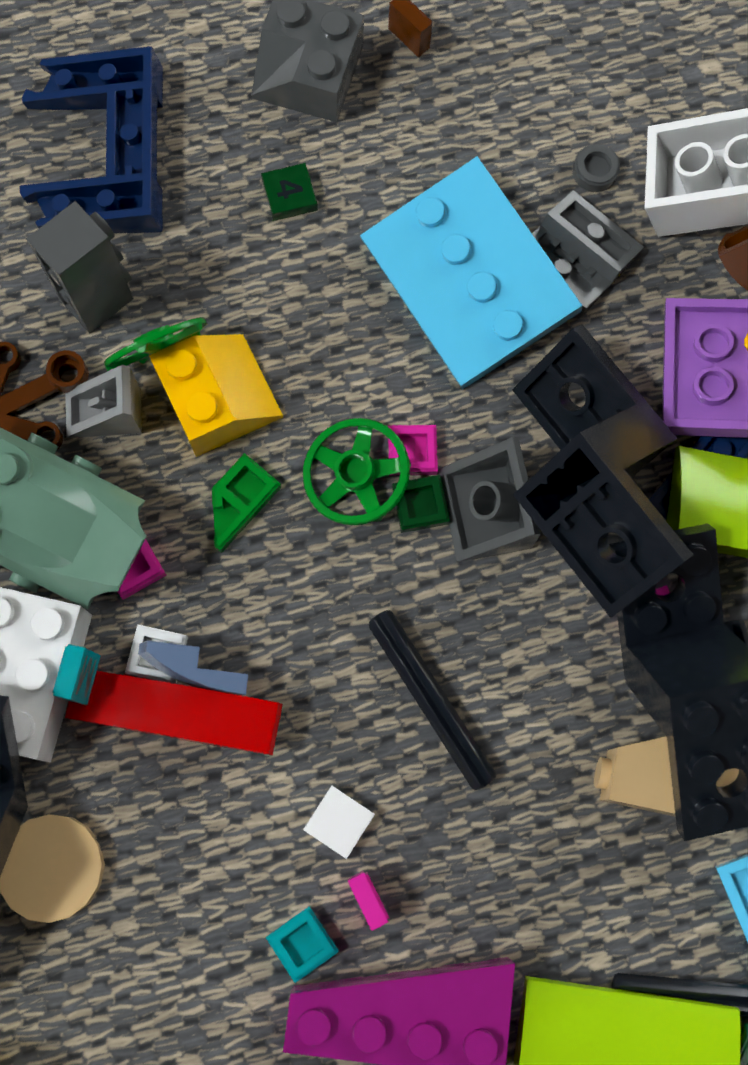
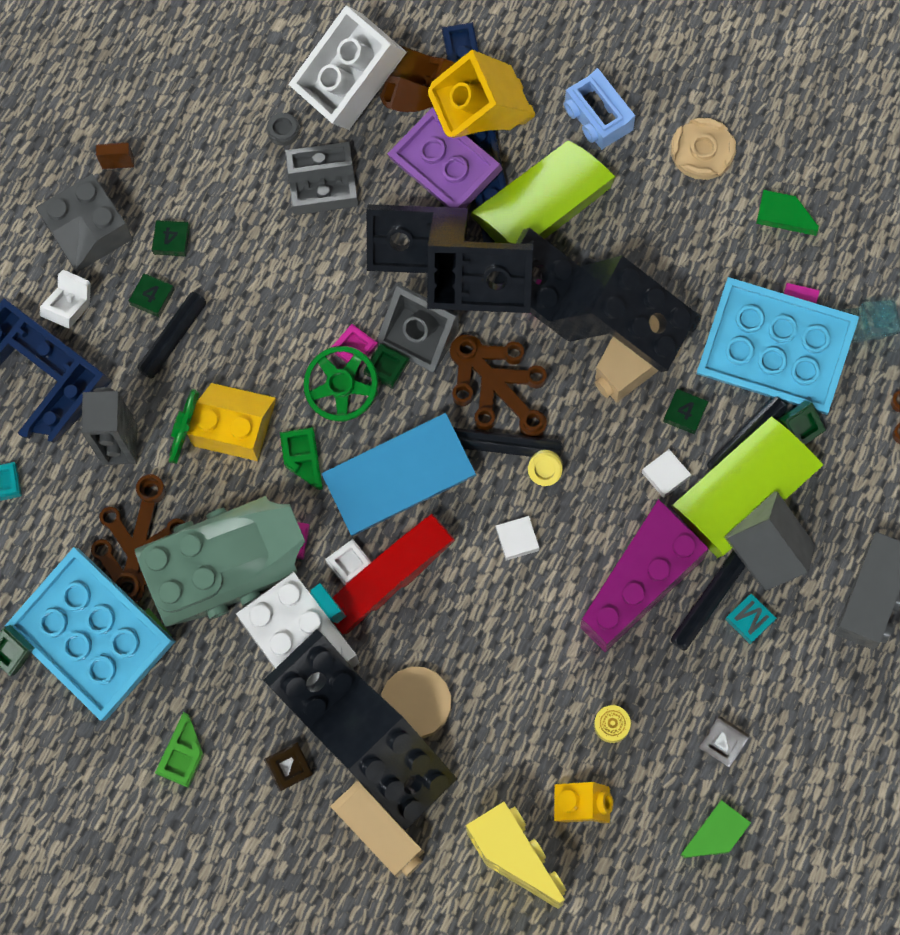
camera: 40 degrees left, 5 degrees down
(105, 405) = (189, 483): light grey slope -> none
(182, 662) = (369, 546): sand blue slope -> none
(206, 114) = (68, 300): none -> white bracket
(262, 249) = (171, 335): none -> black axle
(299, 626) = (398, 474): none -> dark azure tile
(302, 944) = (563, 605): teal tile -> none
(368, 900) = (568, 551): dark pink tile -> none
(370, 158) = (170, 238): none -> dark green tile
(448, 785) = (545, 468): none -> light yellow tile
(471, 272) = (284, 238): medium azure plate -> none
(504, 638) = (495, 381): none -> reddish brown plant
(562, 934) = (666, 473): none -> white tile
(657, 894) = (685, 411): none -> dark green tile

